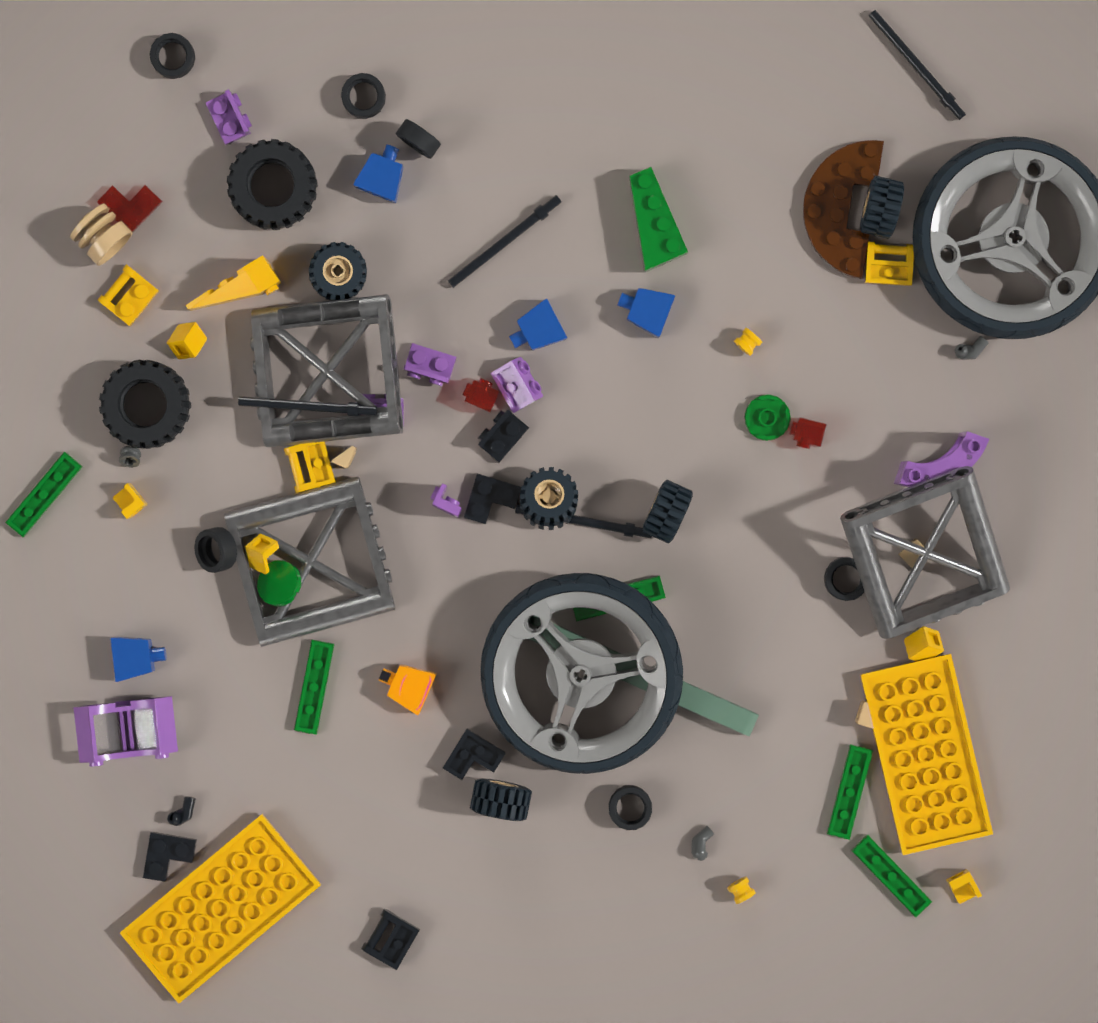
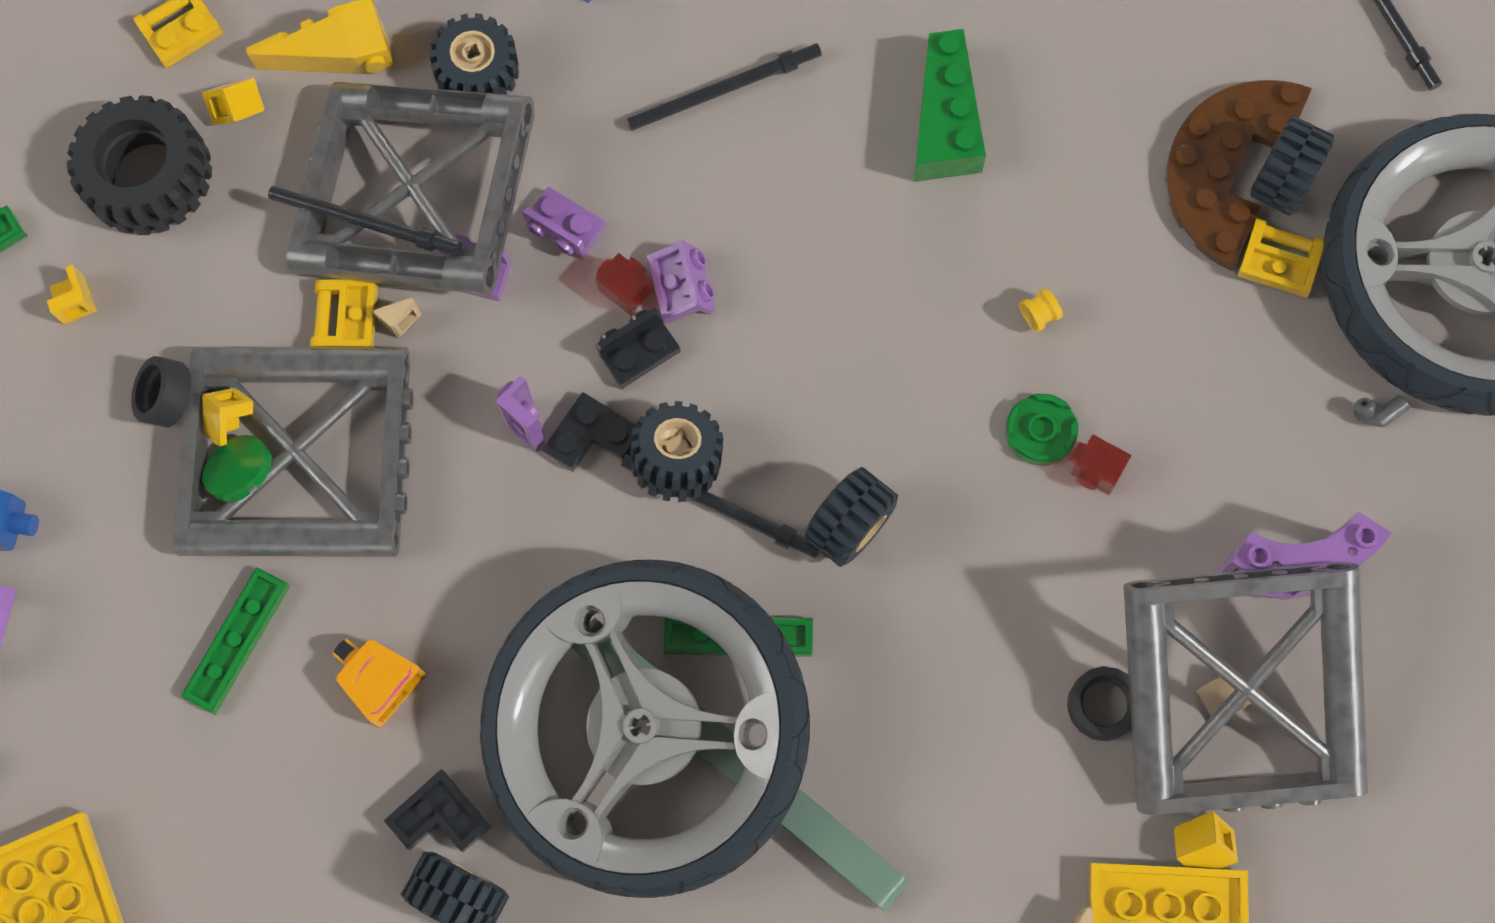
camera: 25 degrees right, 15 degrees down
(130, 456) = (93, 234): dark grey bush -> none
(539, 328) = (737, 211): blue torso -> none
(647, 309) = (904, 227): blue torso -> none

